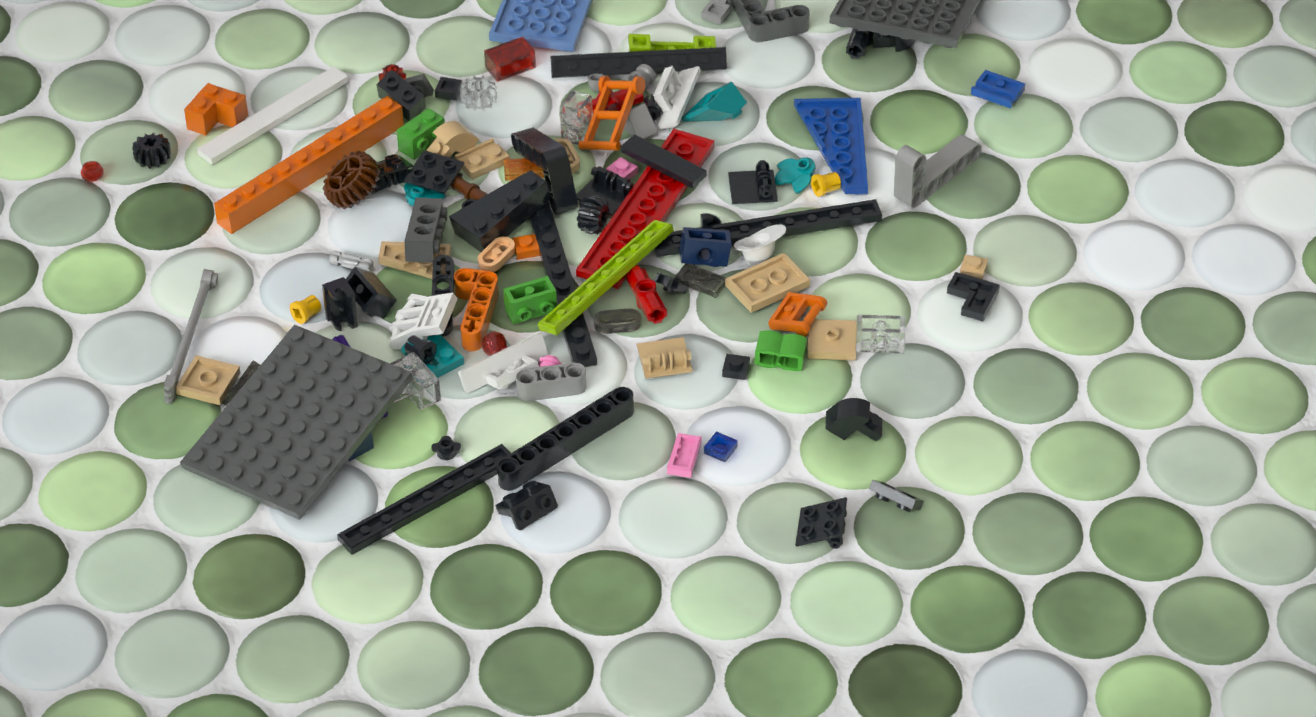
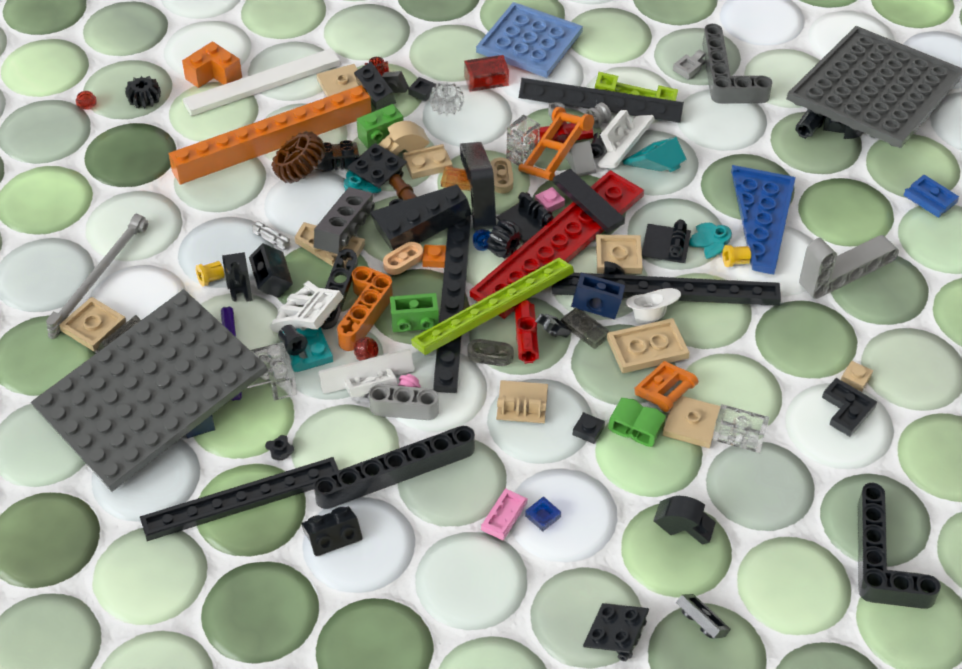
camera: 15 degrees right, 5 degrees up
(355, 97) = (337, 80): none -> tan plate
(568, 220) = (478, 239): none -> clear blue plate
(710, 200) = (619, 249): none -> tan plate
(1040, 432) = (873, 528): none -> black beam

